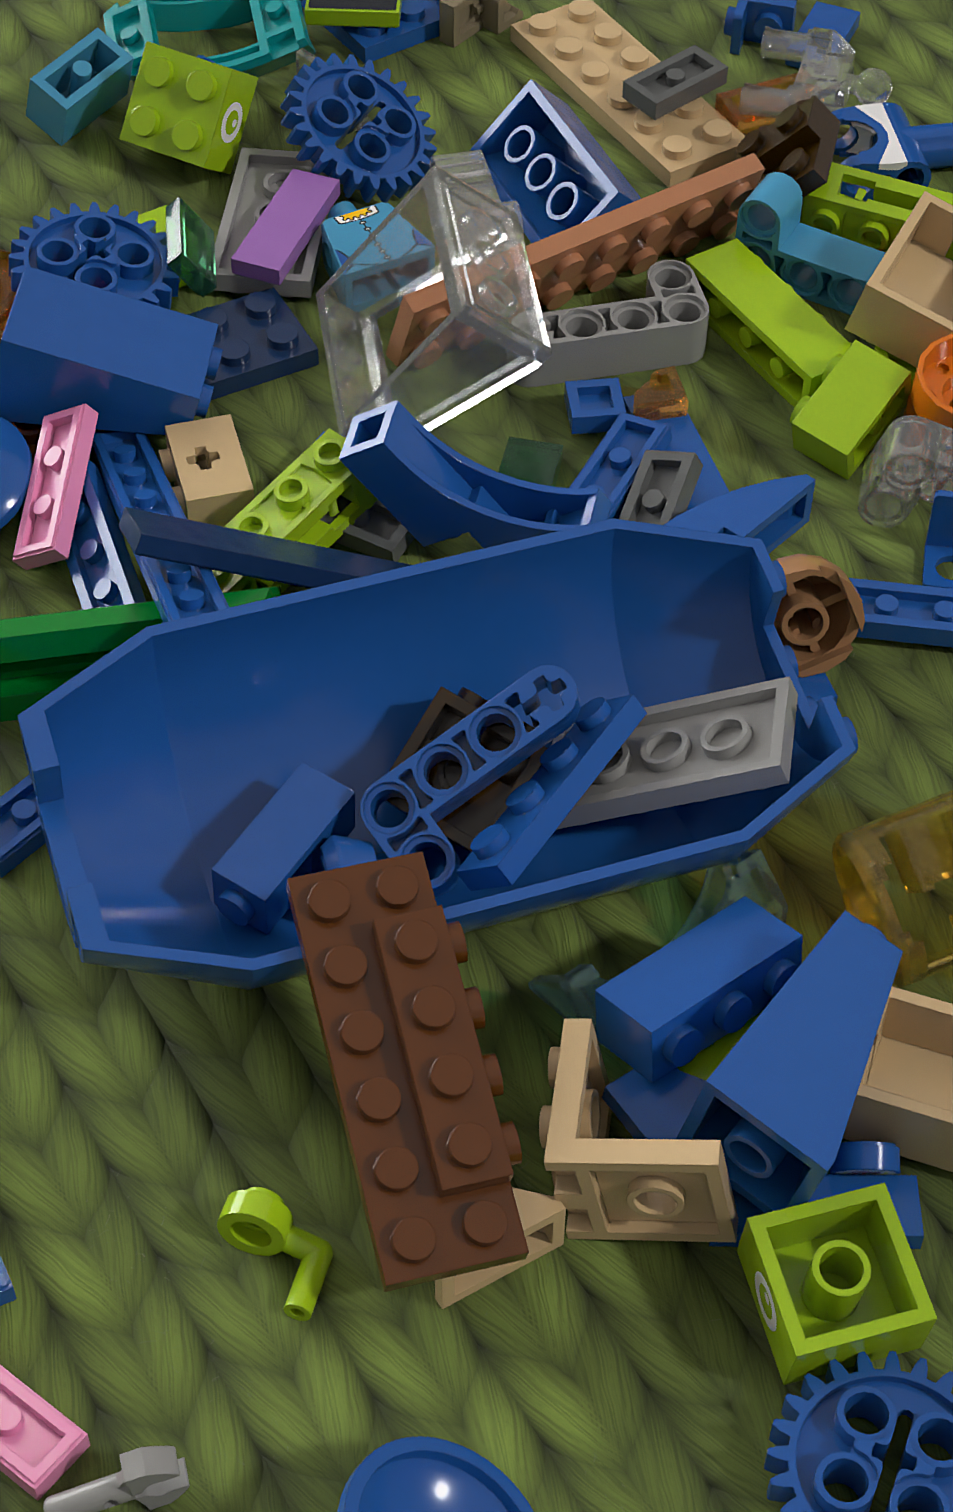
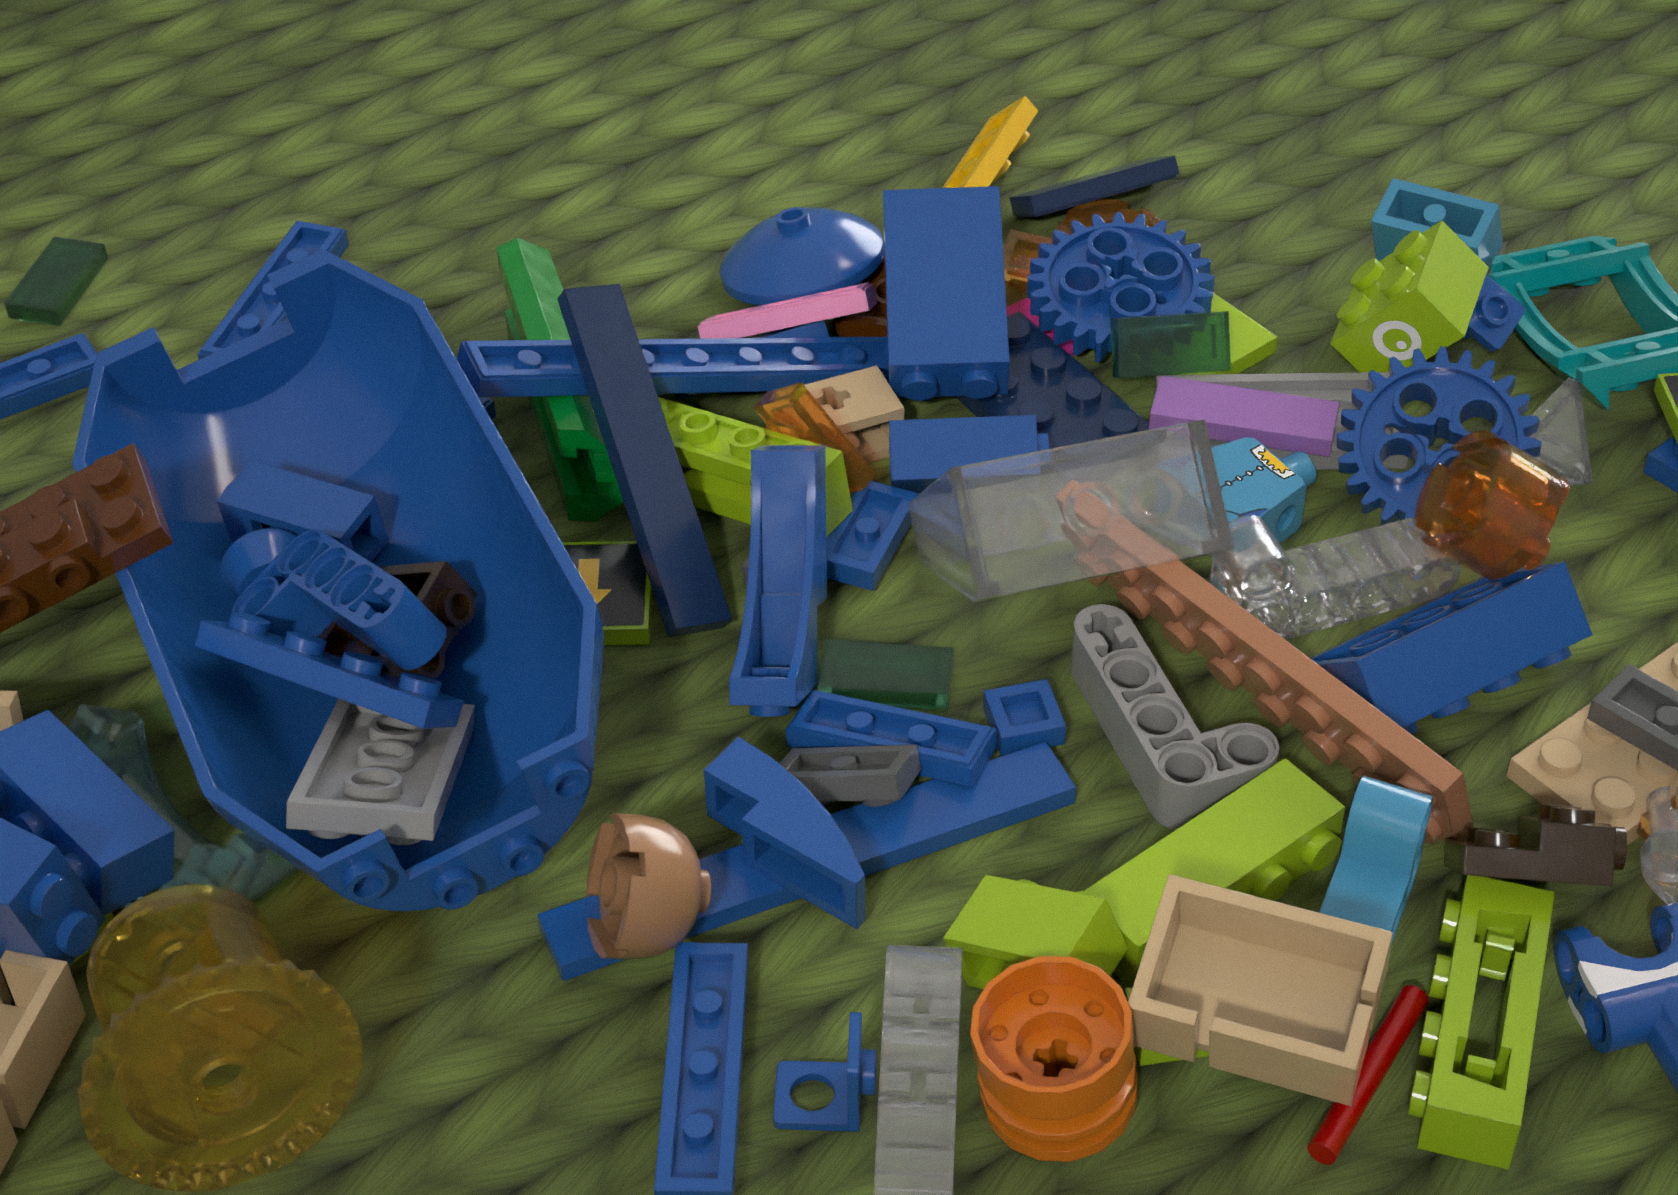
camera: 85 degrees right, 5 degrees down
(266, 458) = (798, 414): none -> clear orange plate
(286, 395) = (929, 447): none -> blue brick
(435, 102) = (1491, 506): none -> clear orange brick
(661, 396) = (1042, 769): clear orange tile -> none

